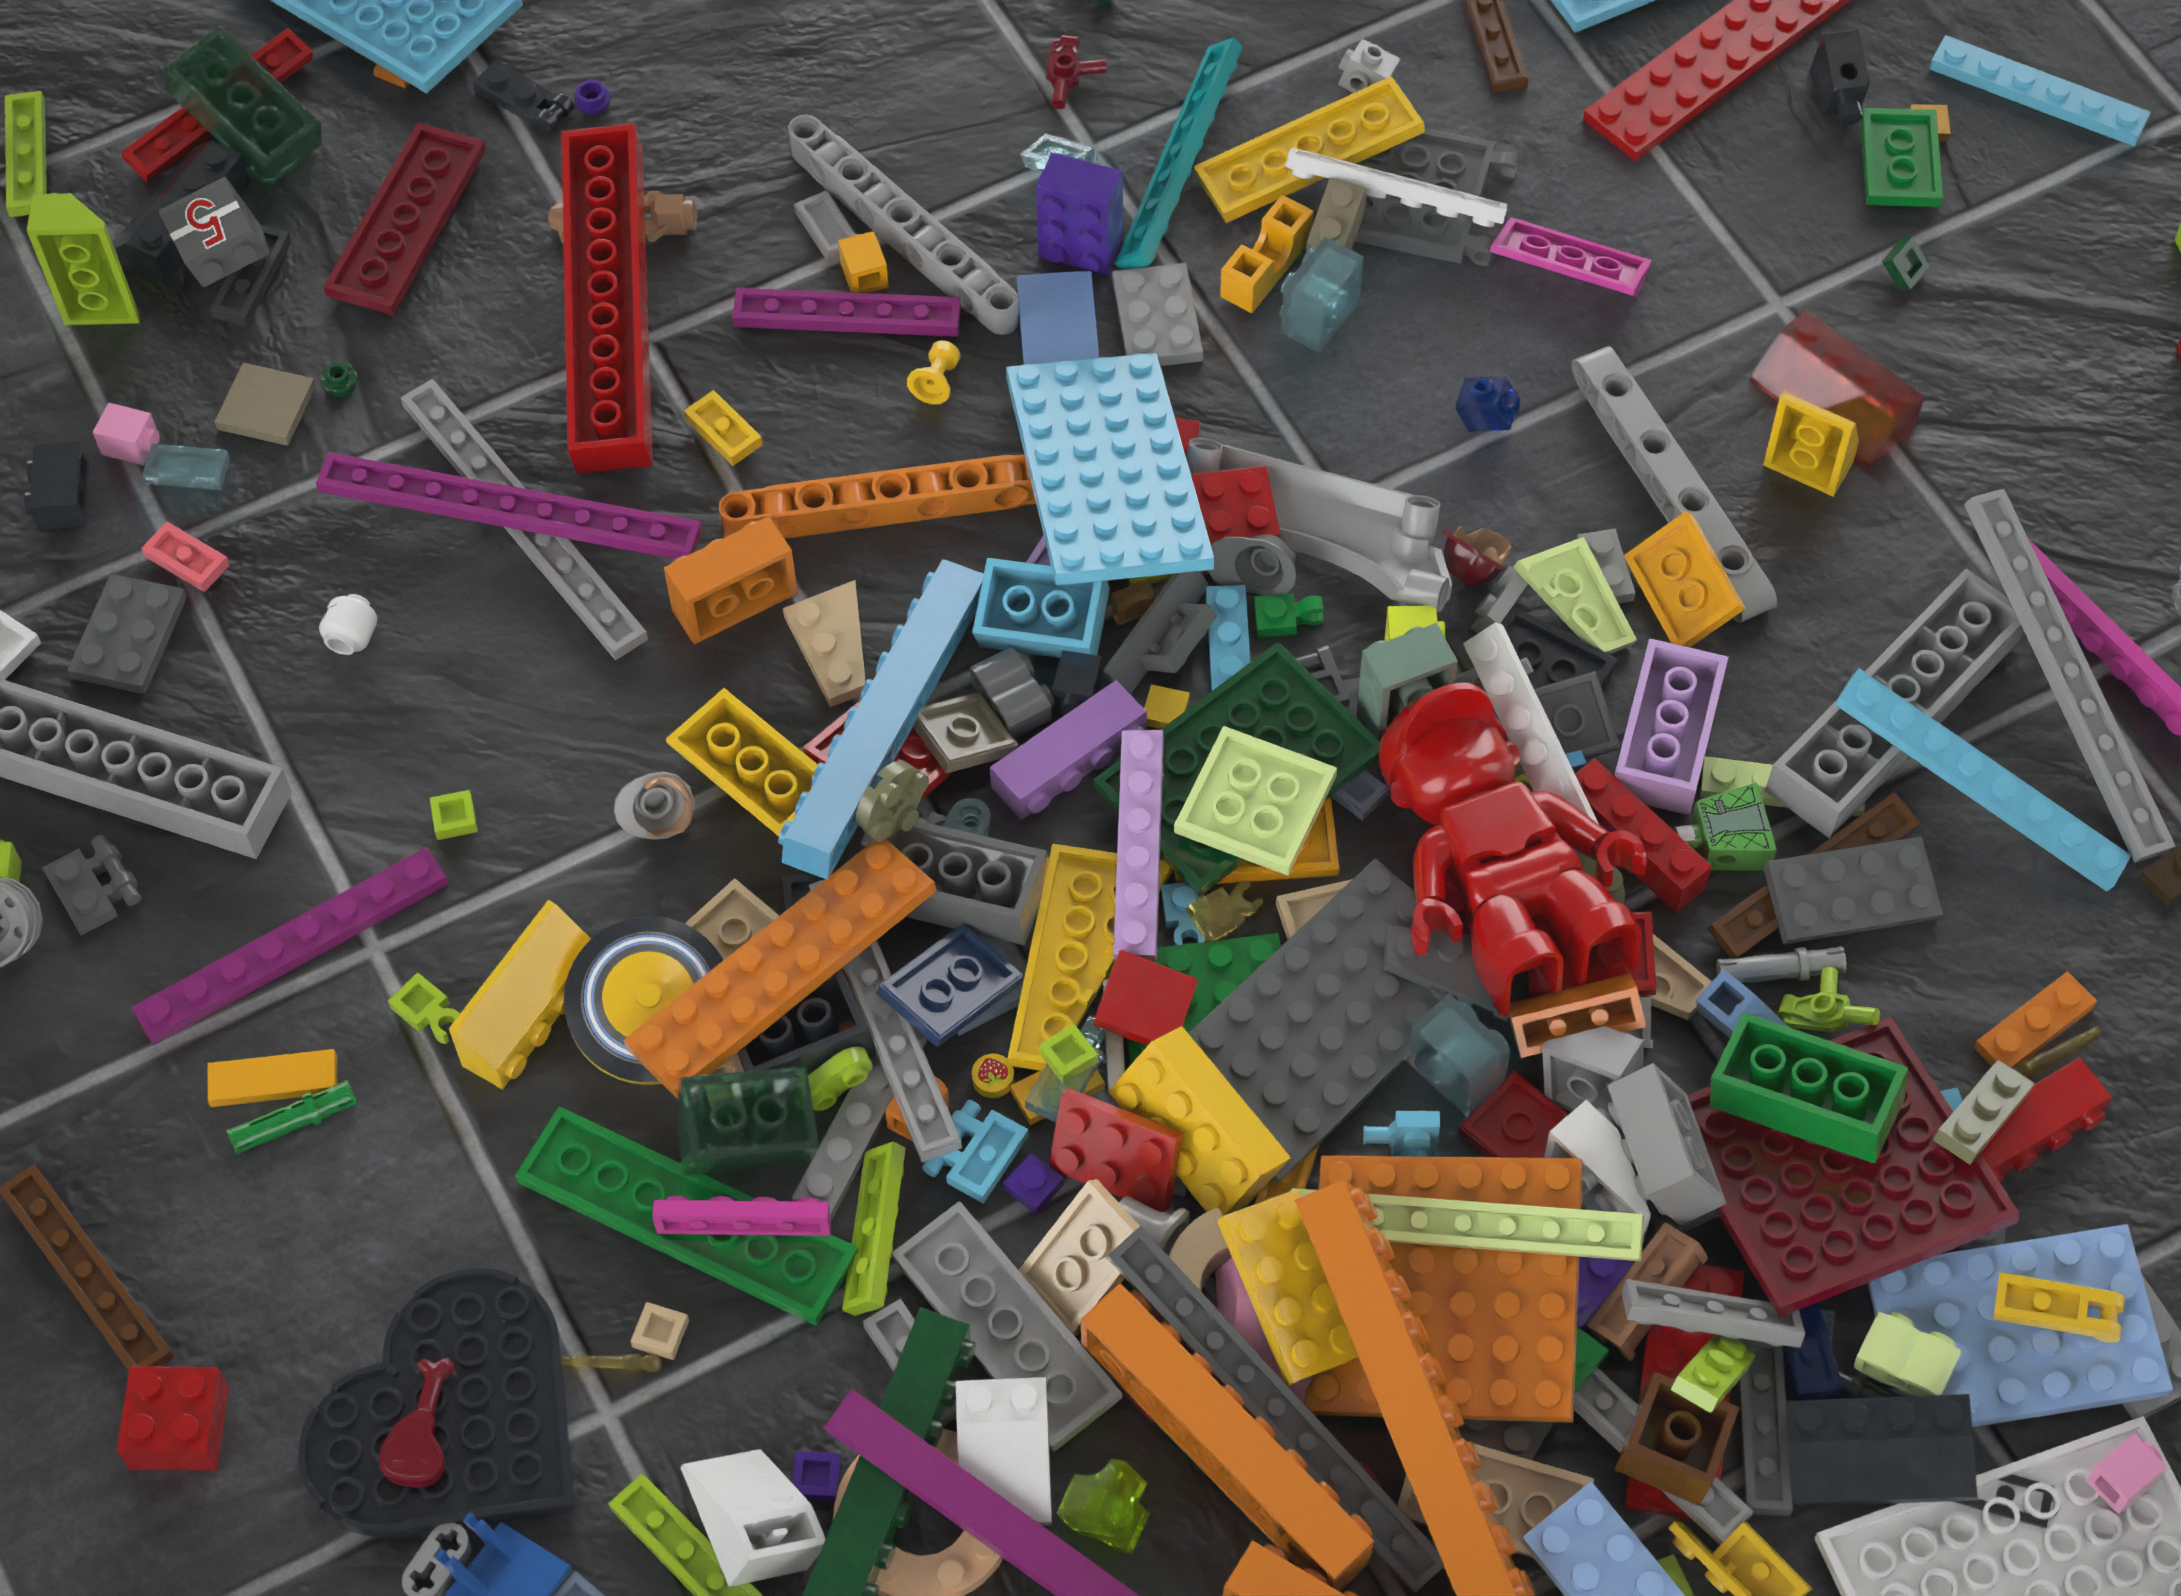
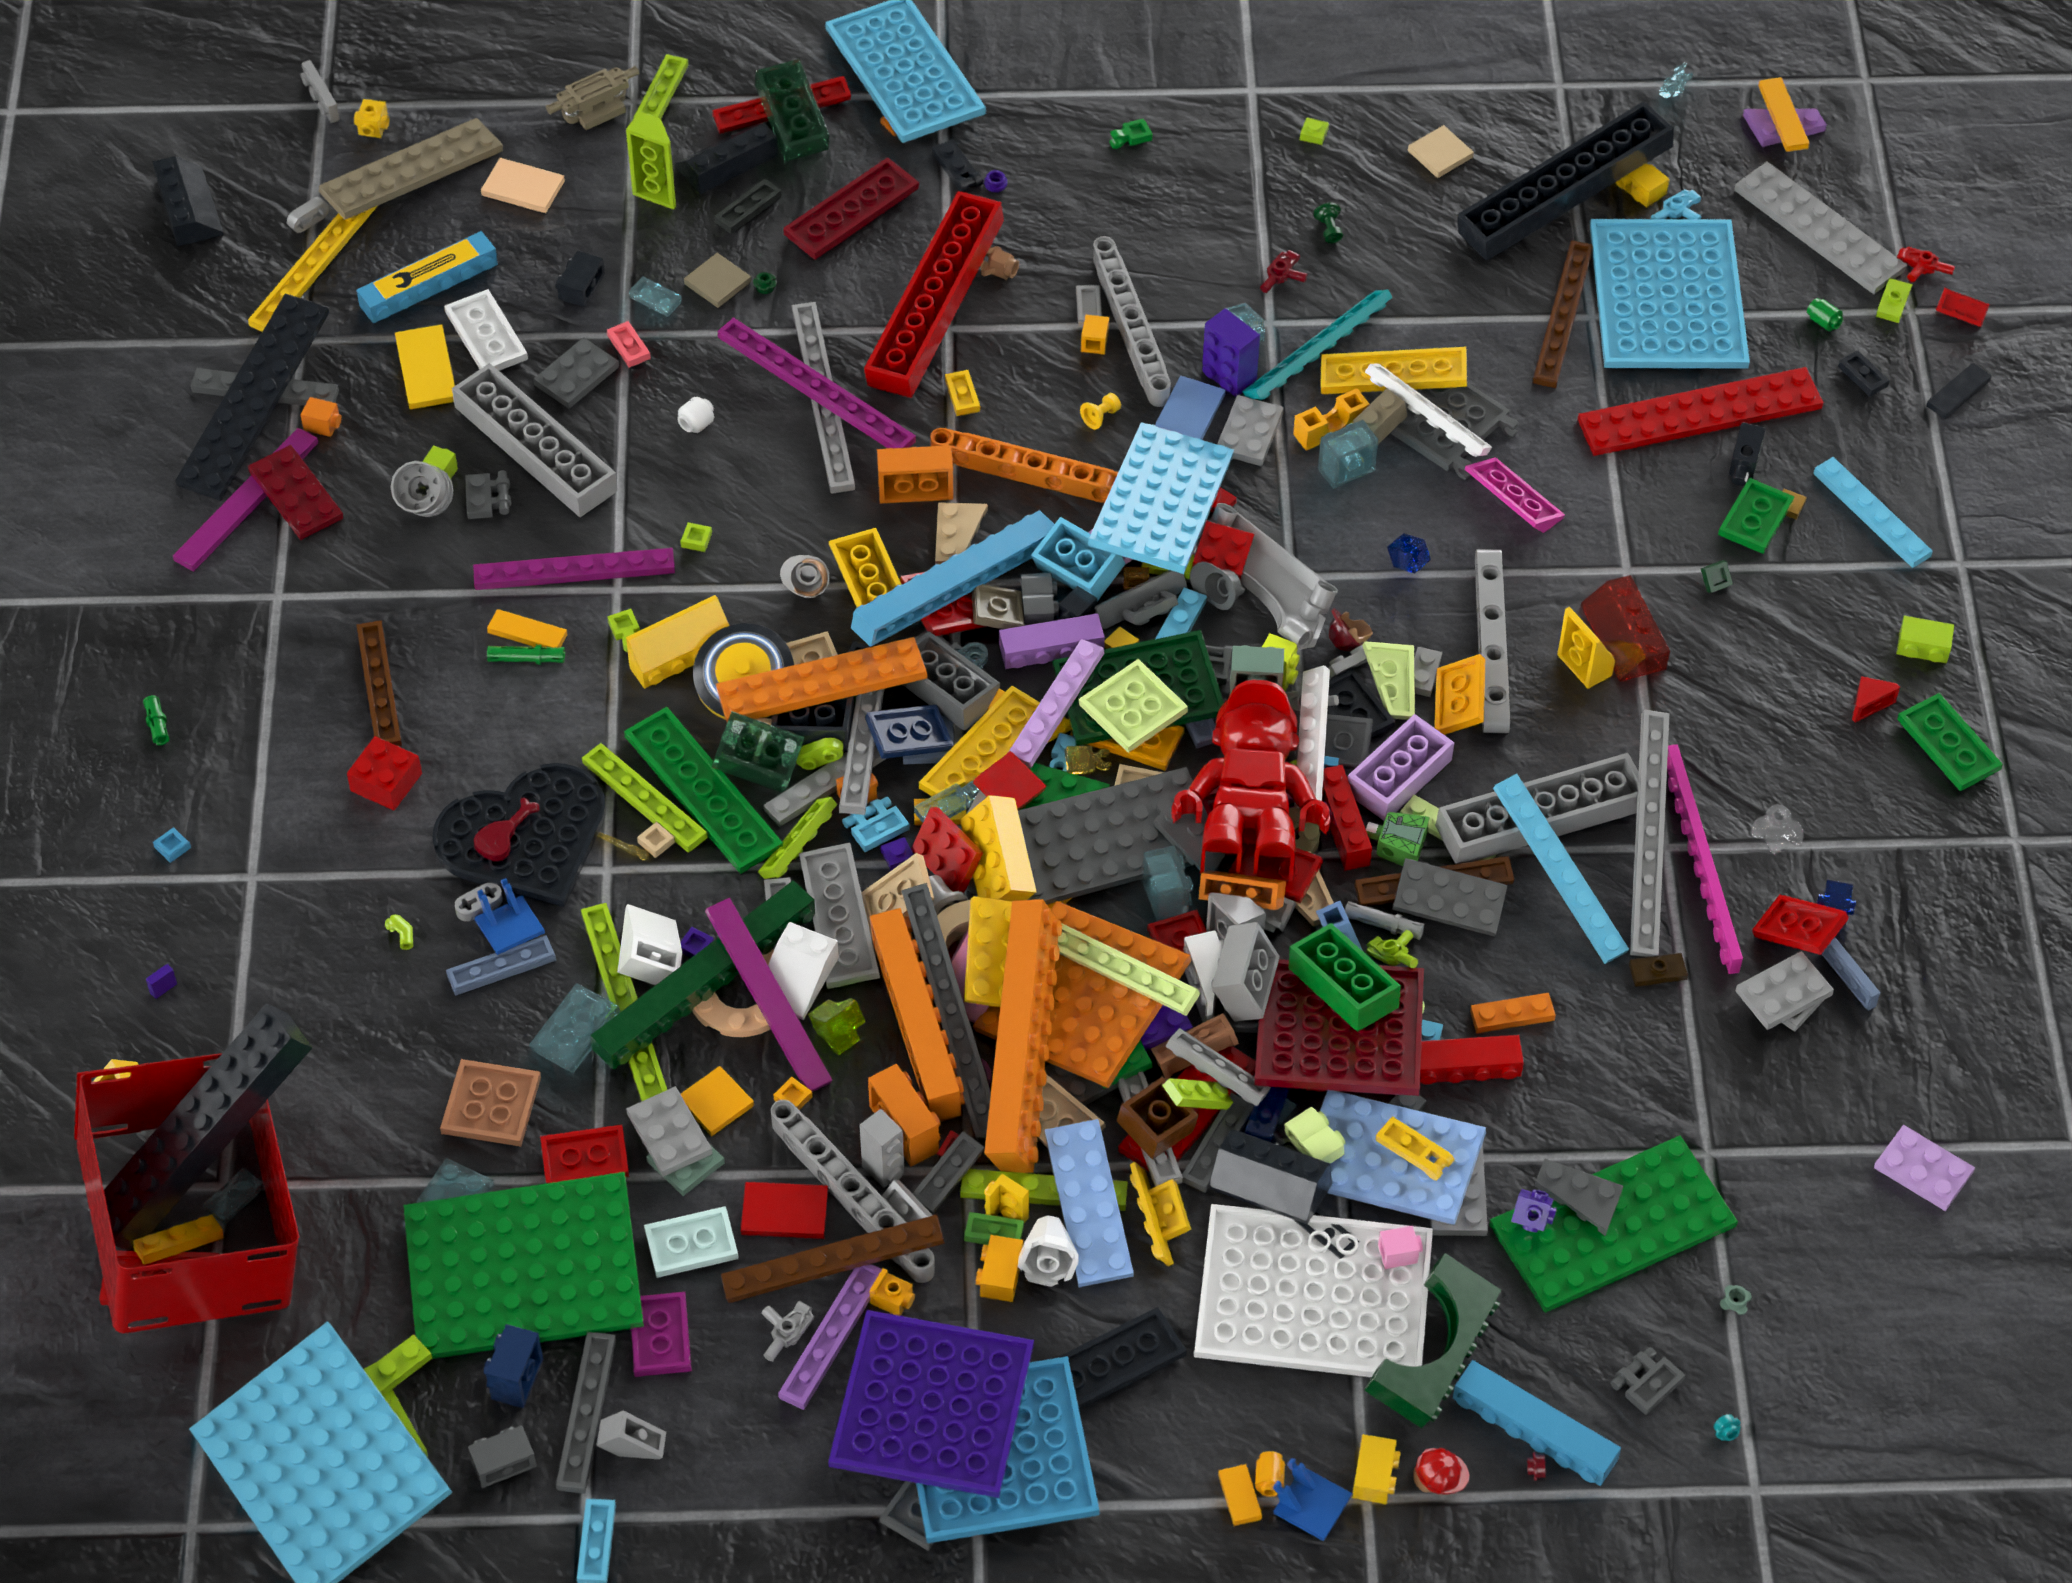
camera: 25 degrees right, 5 degrees down
(126, 433) = (631, 265): bright pink brick -> none
(214, 232) = (737, 173): dark grey slope -> none
(603, 1269) = (644, 797): none -> lime plate
(731, 1217) = (728, 799): dark pink plate -> none
(846, 312) = (1070, 357): magenta plate -> none
(892, 802) = (937, 617): olive plate -> none
(992, 1076) = (908, 790): yellow tile -> none
(1068, 1053) = (949, 791): lime plate -> none
(1280, 615) = (1219, 619): green plate -> none
(1366, 66) = (1459, 335): light grey brick -> none
(1409, 1134) = (1112, 909): medium azure plate -> none
(1983, 1112) = (1438, 1033): plate -> none
(2042, 1060) = (1491, 1032): clear yellow piece -> none

